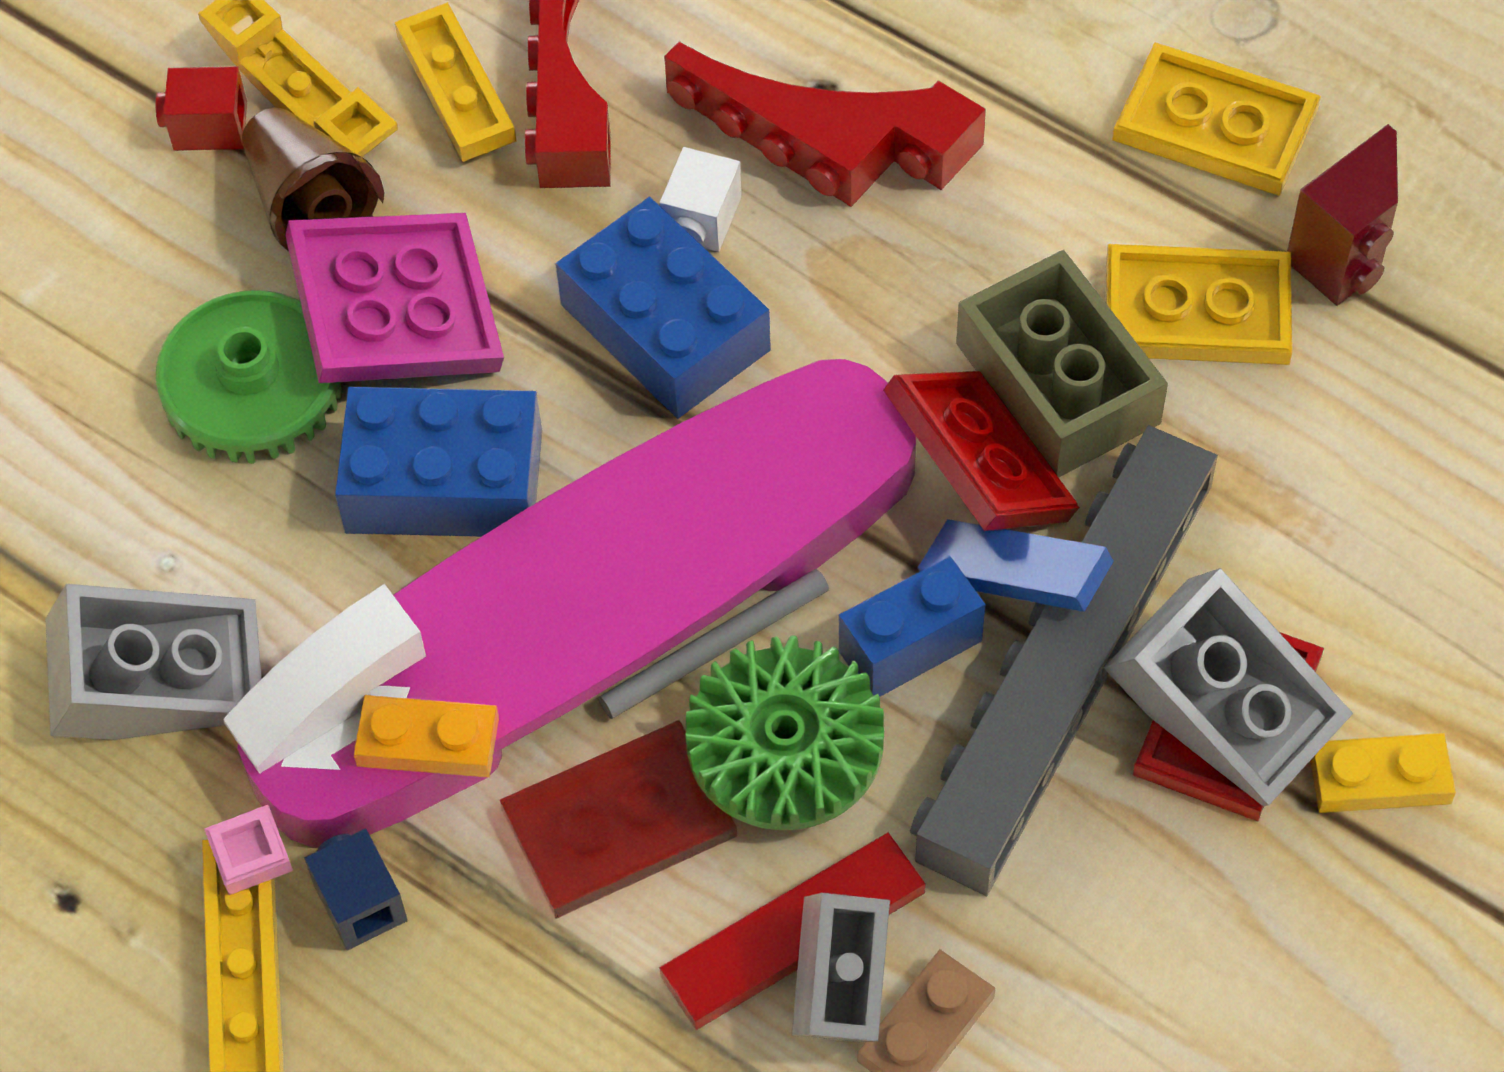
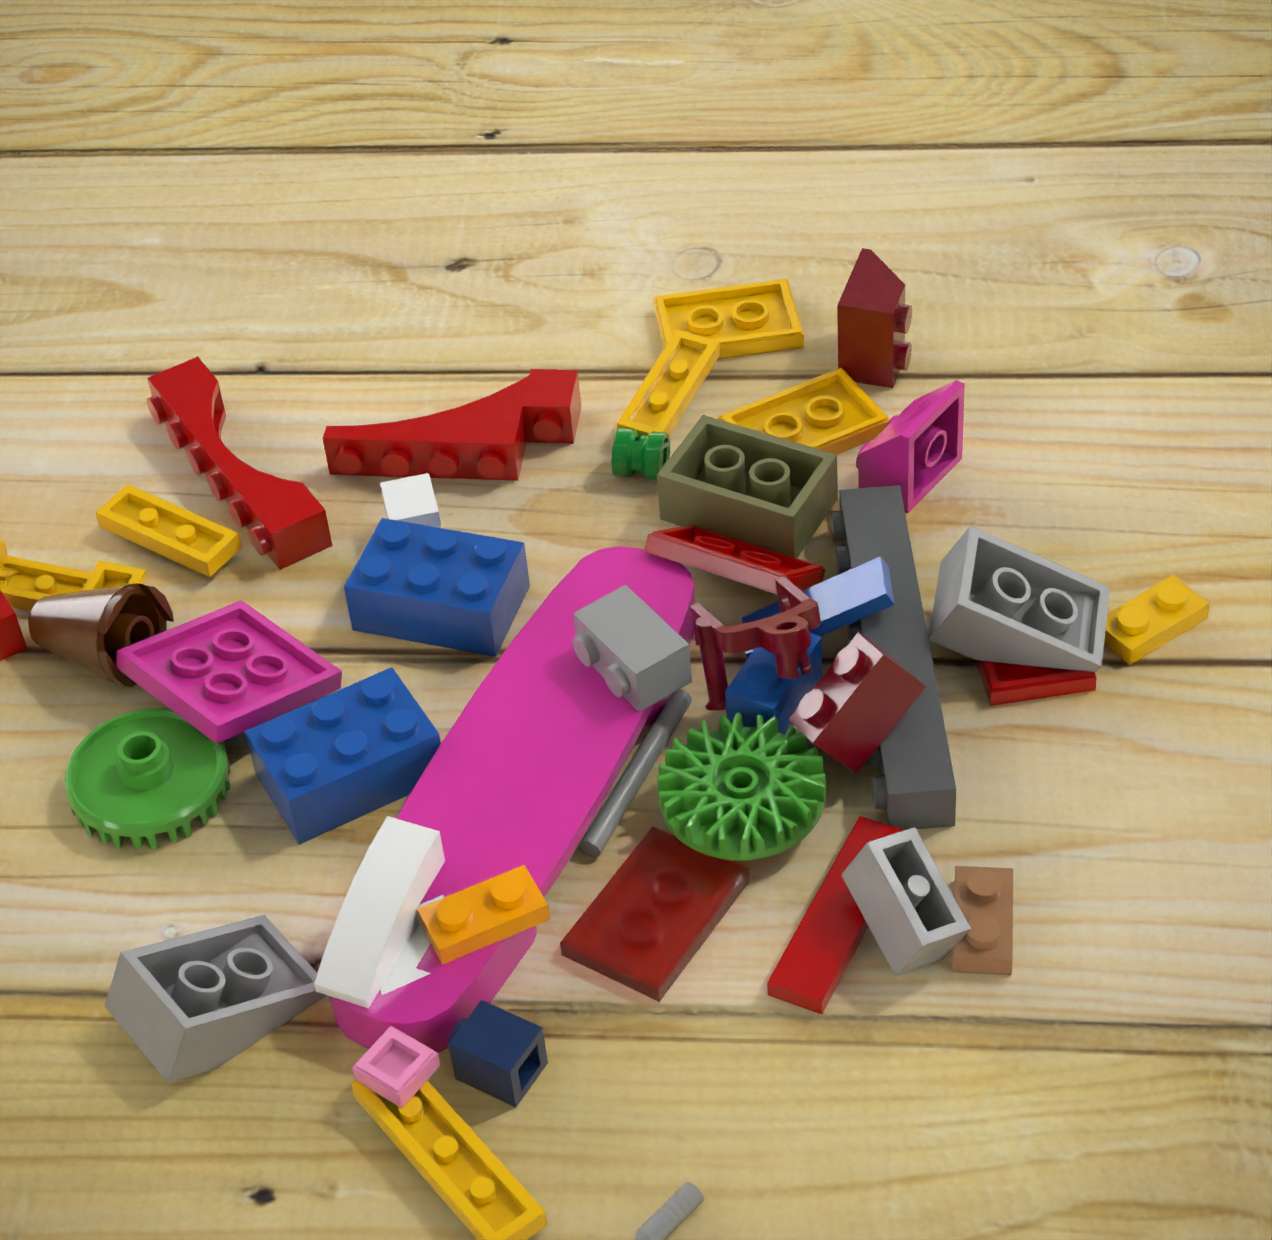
camera: 30 degrees left, 15 degrees down
(775, 510) = (631, 648): none -> light grey brick
(918, 586) = (782, 634): none -> dark red piece
(956, 708) = (856, 702): none -> dark red slope
(986, 250) = (643, 454): none -> green wheel
(1078, 180) = (671, 384): none -> yellow plate
(1277, 412) = (916, 445): none -> dark pink slope

